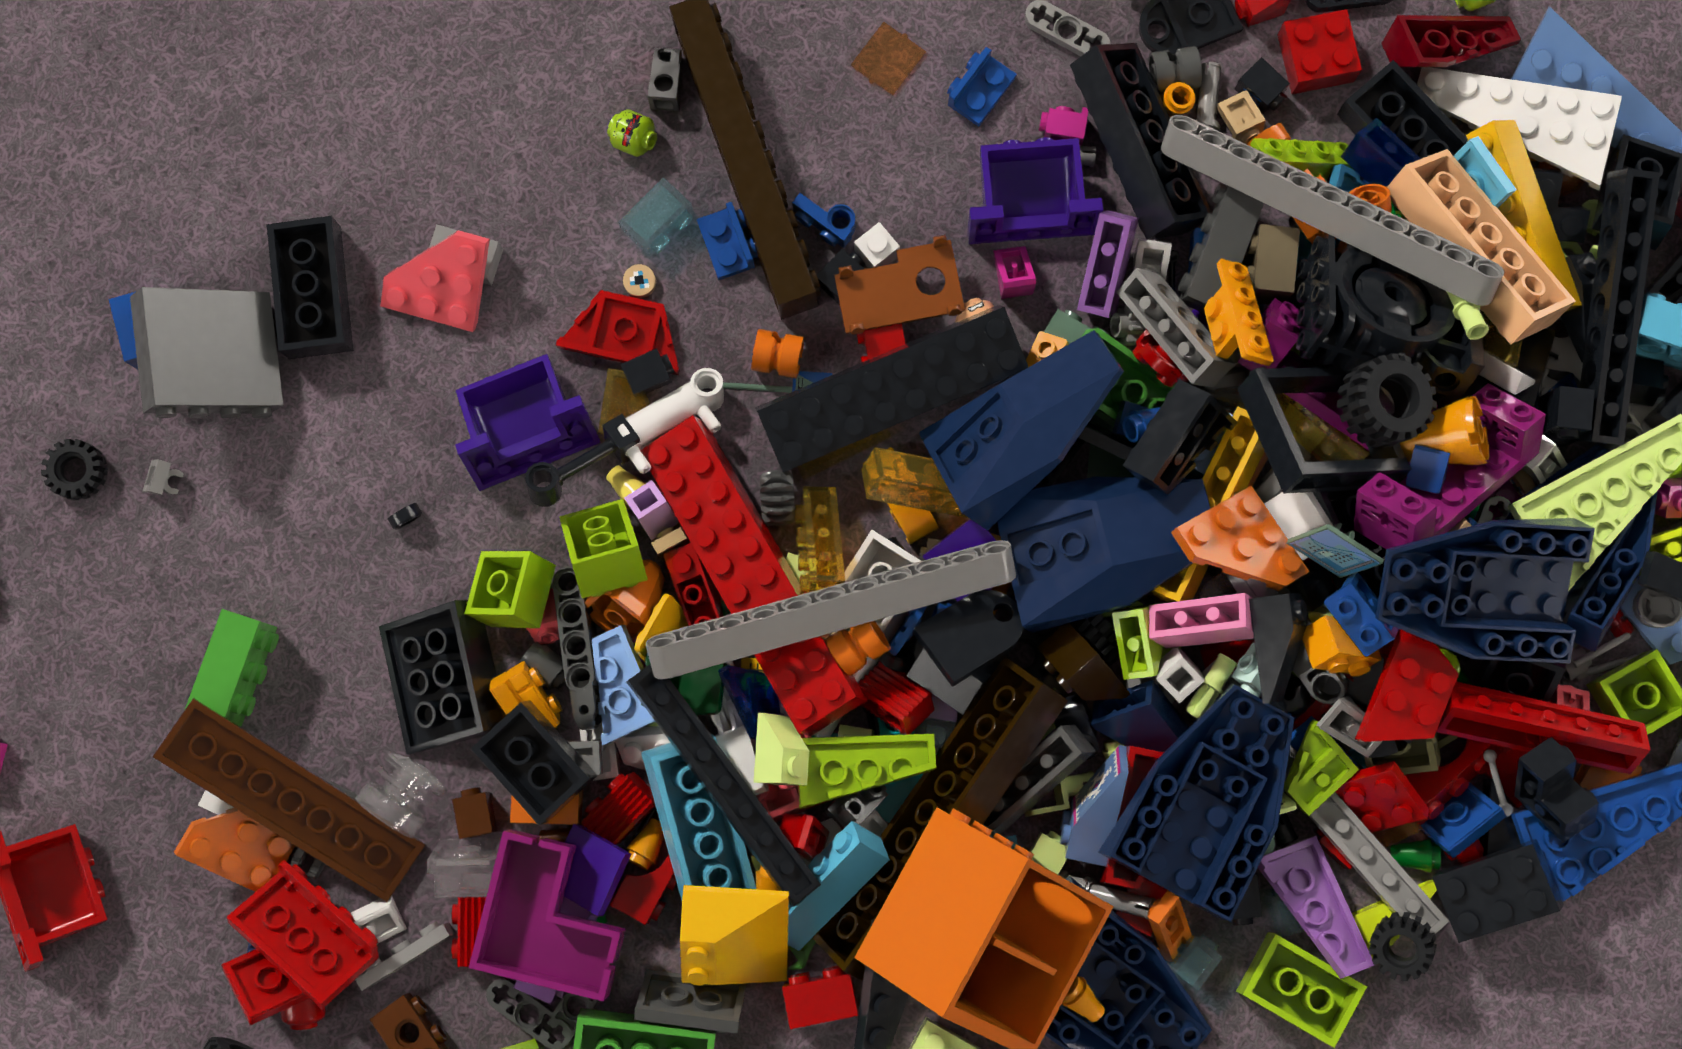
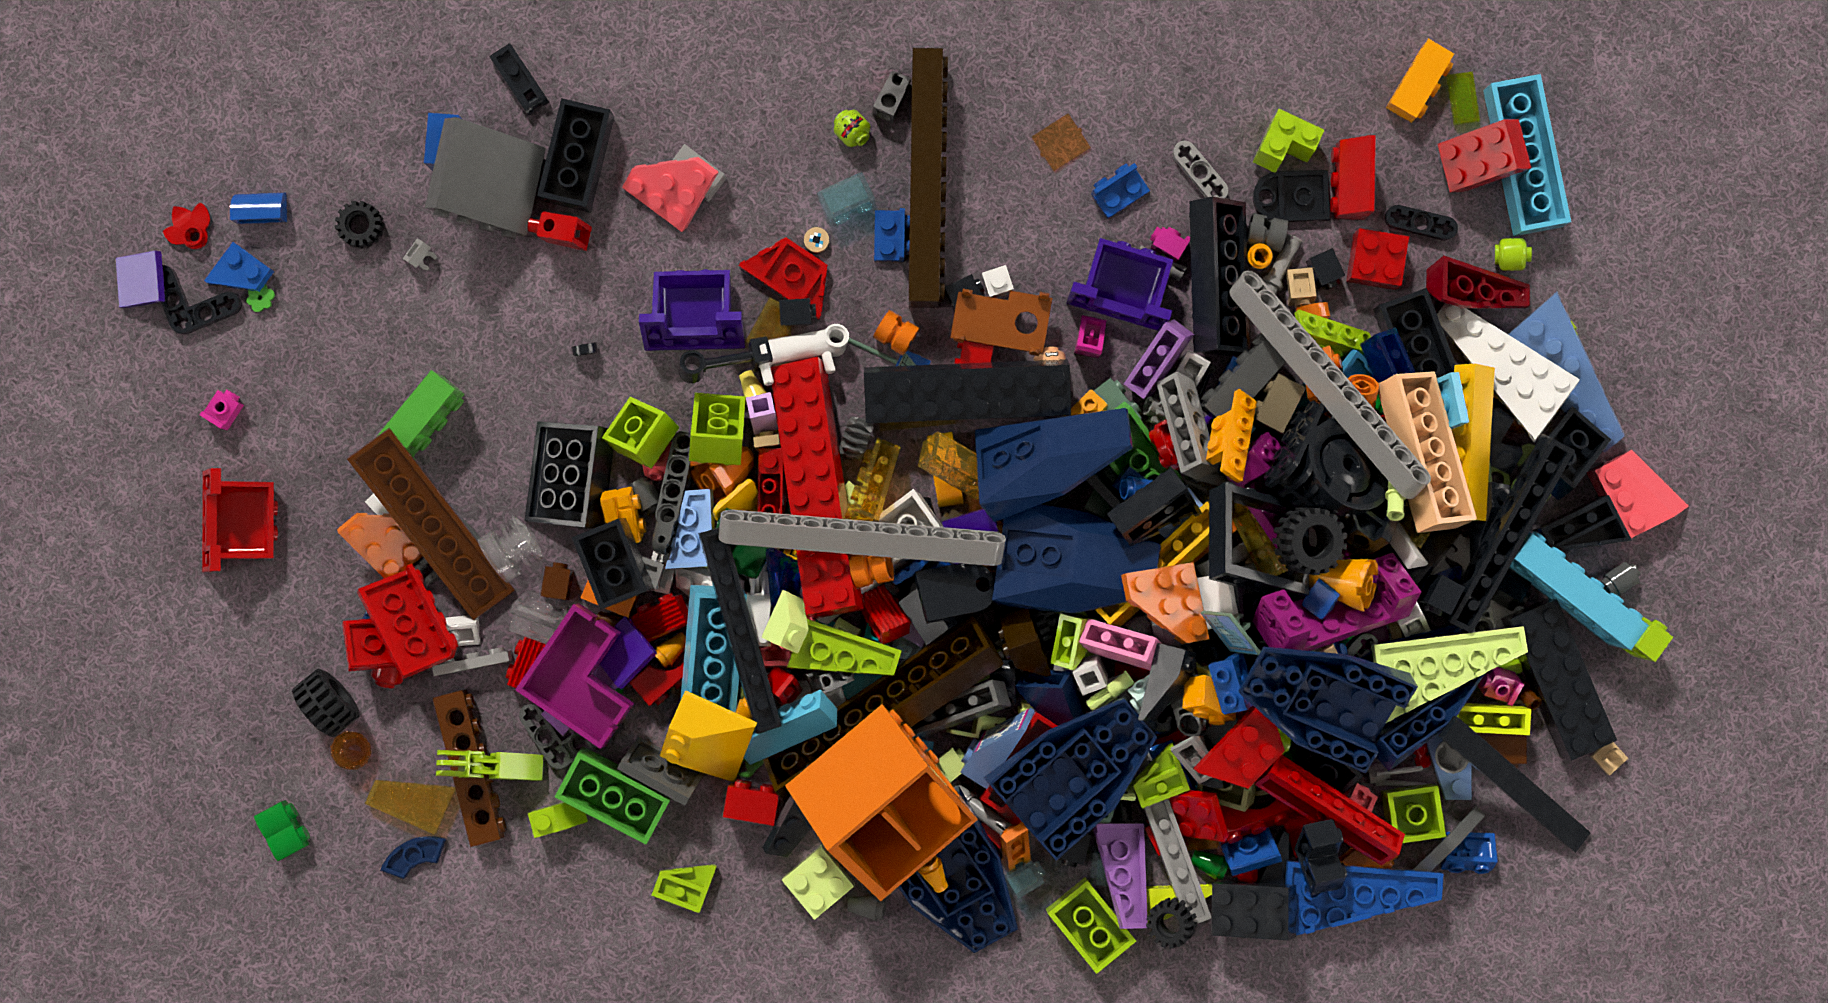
camera: 15 degrees right, 5 degrees up
(208, 223) = (518, 78): none -> black plate
(322, 384) = (561, 230): none -> red torso
(811, 214) = (958, 238): blue plate -> none
(1490, 757) = (1287, 815): light grey hinge -> none

